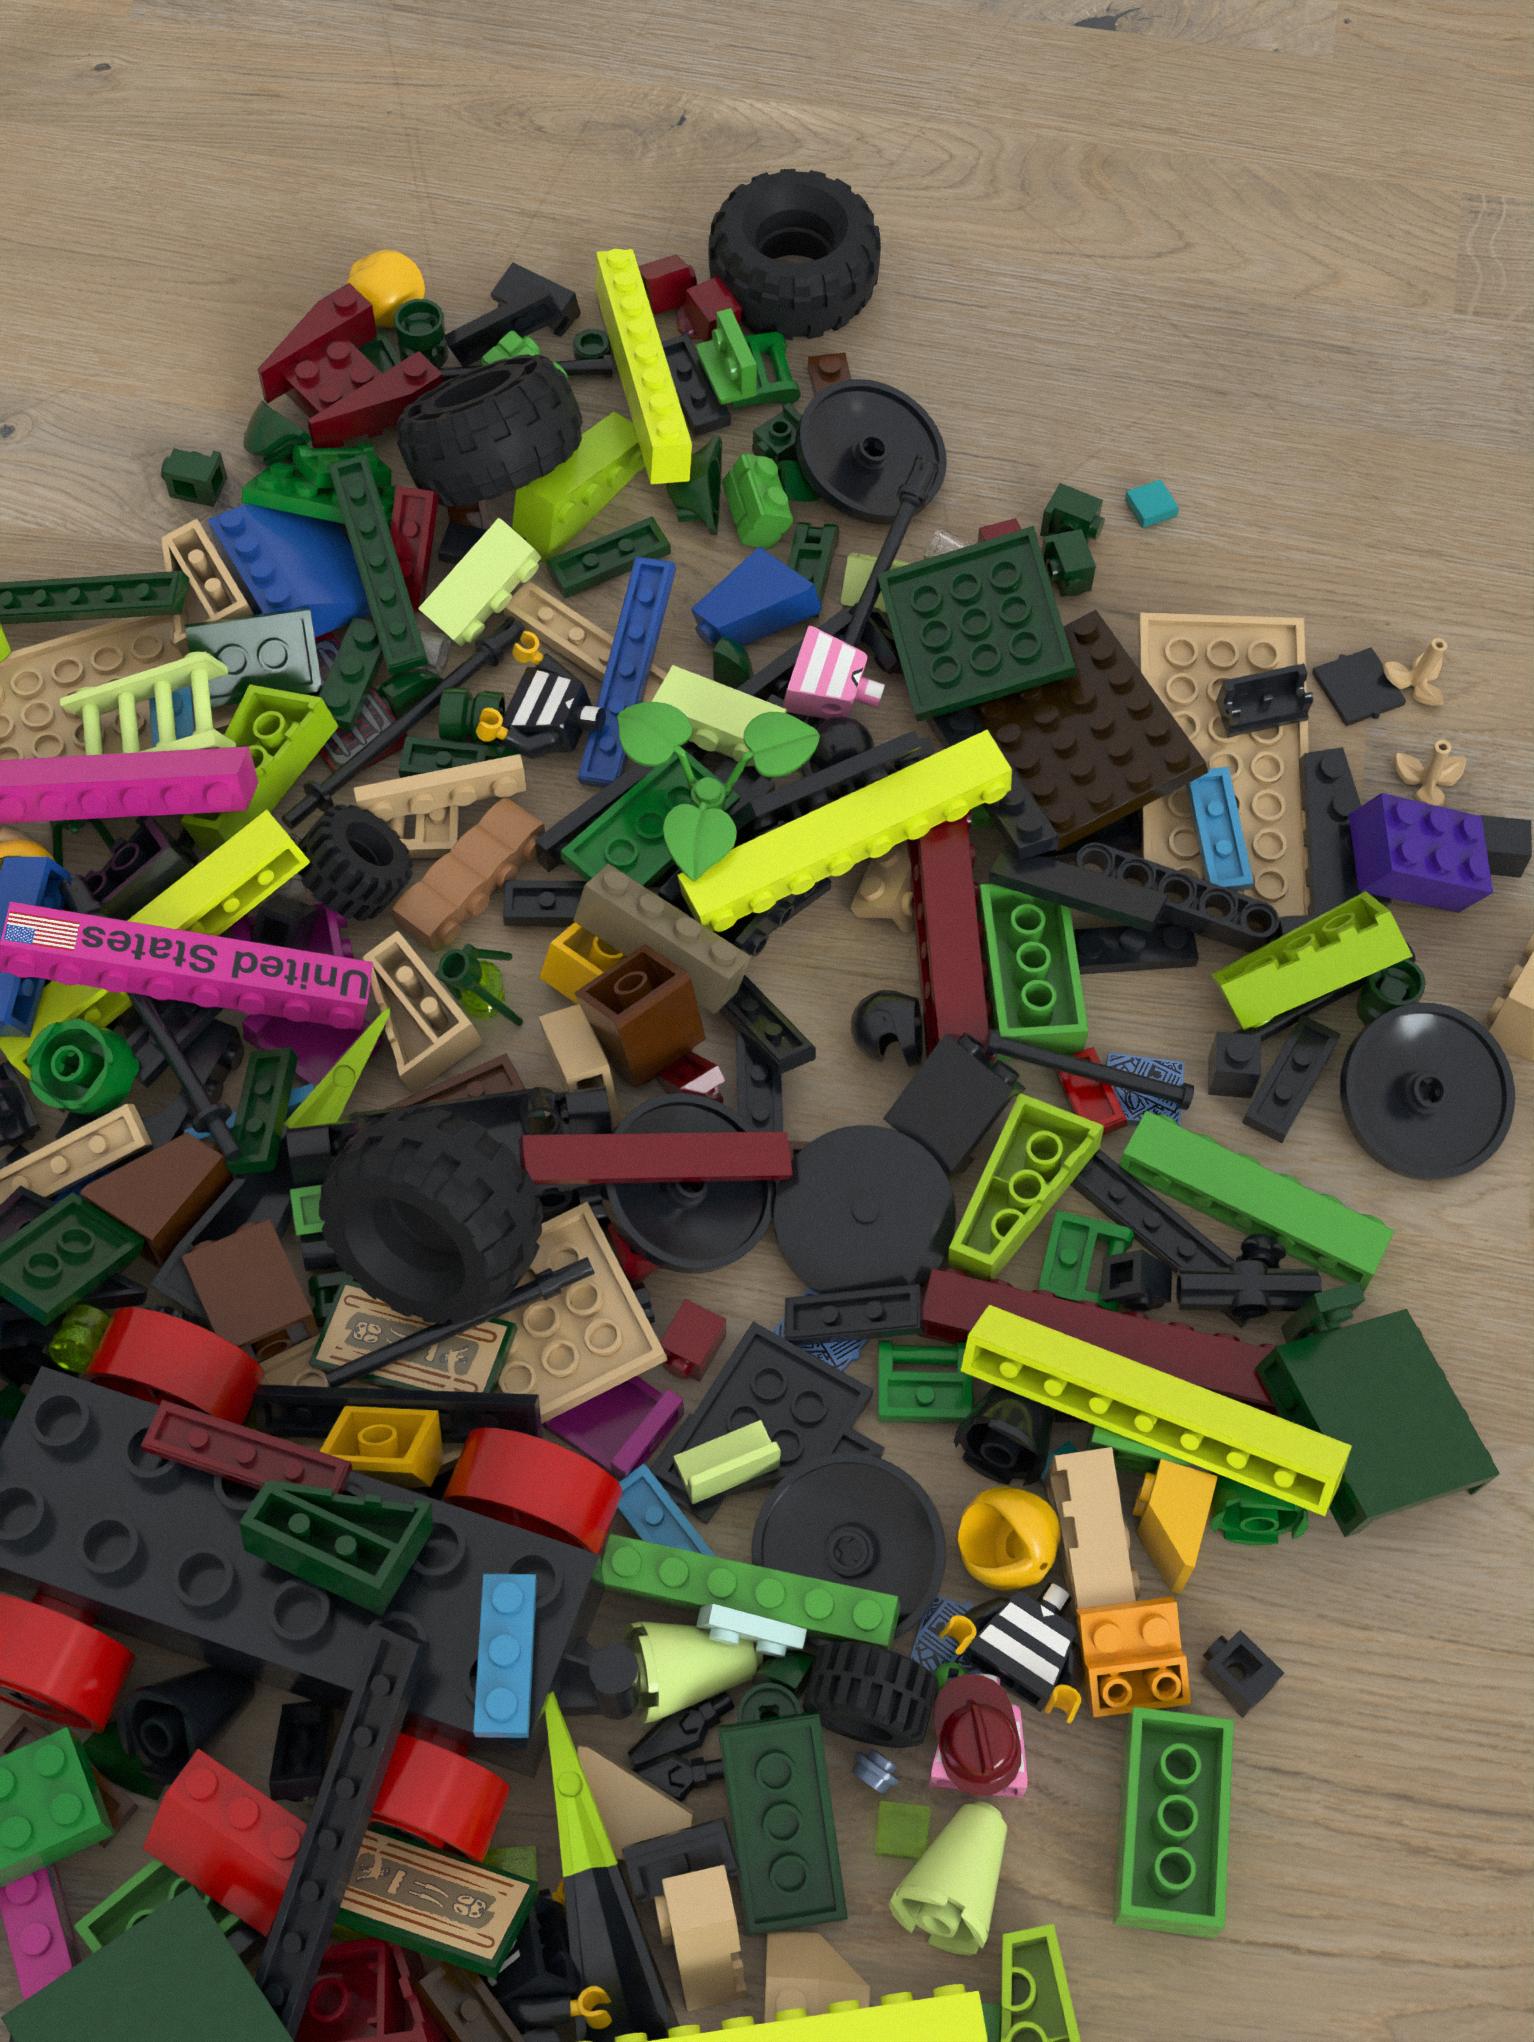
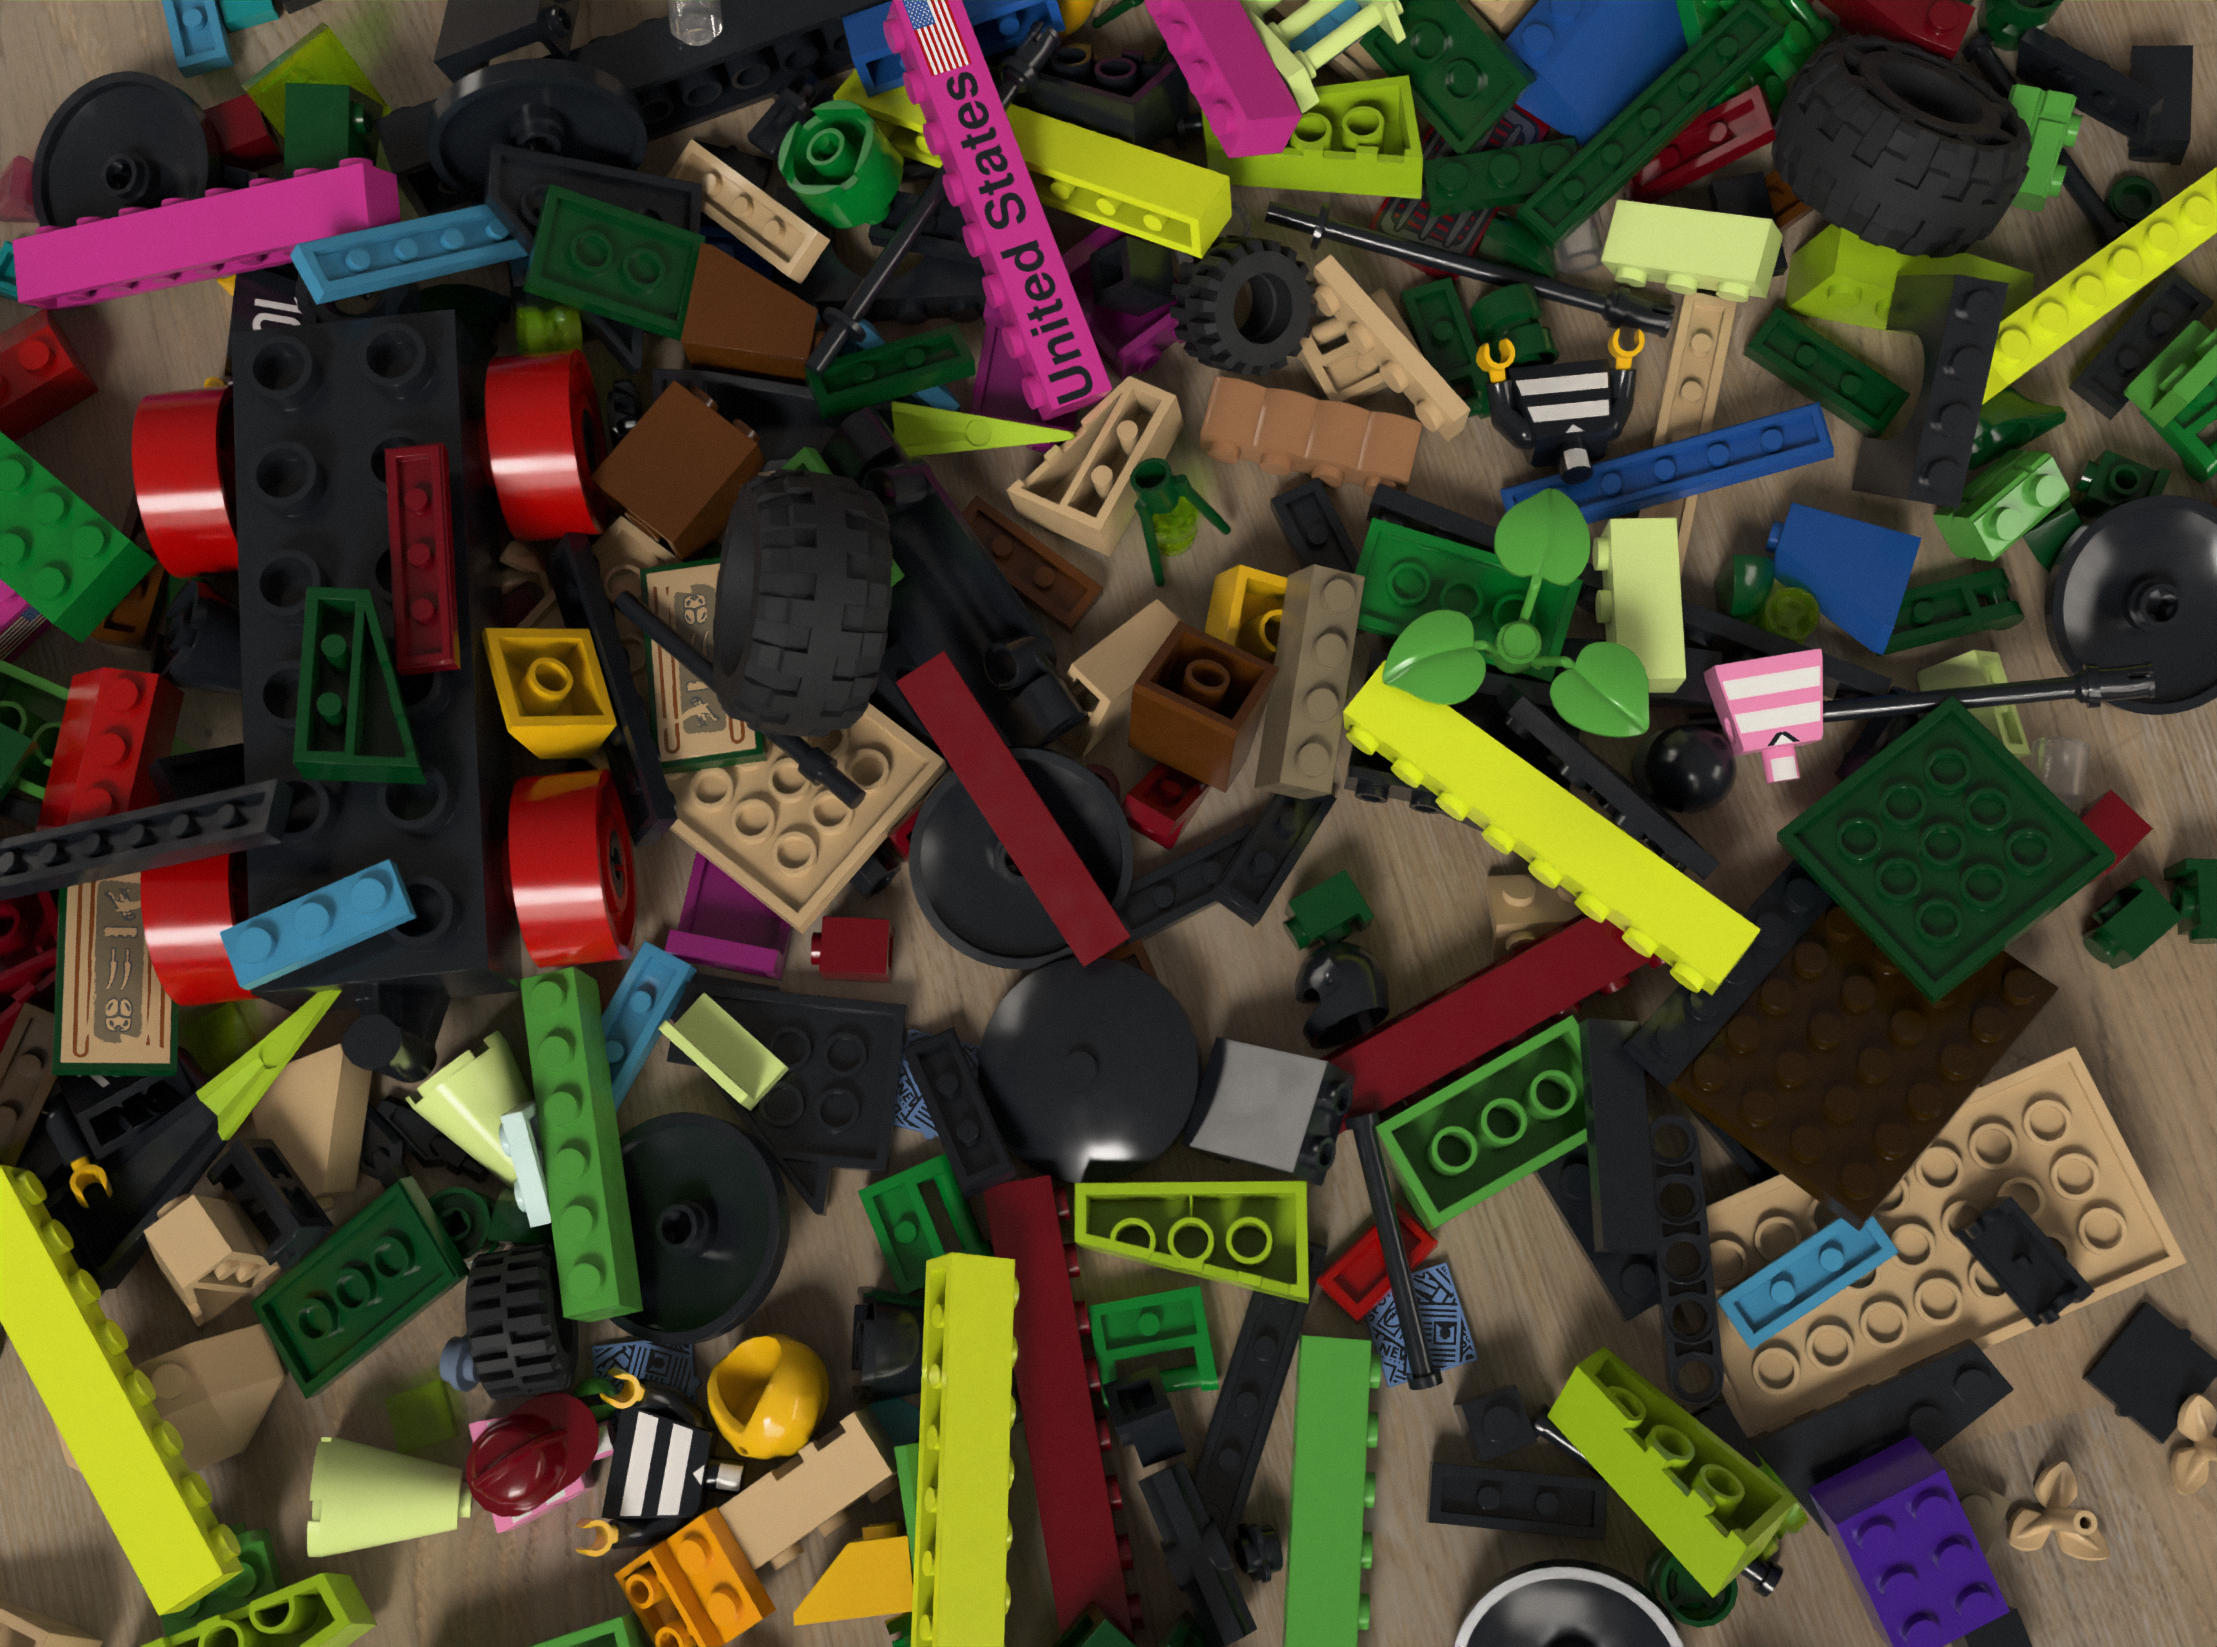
camera: 70 degrees right, 15 degrees up
(711, 504) = (1958, 332): none -> black arch
(765, 646) = (1794, 611): none -> clear neon green wheel
(827, 1013) = (1326, 913): none -> dark green brick

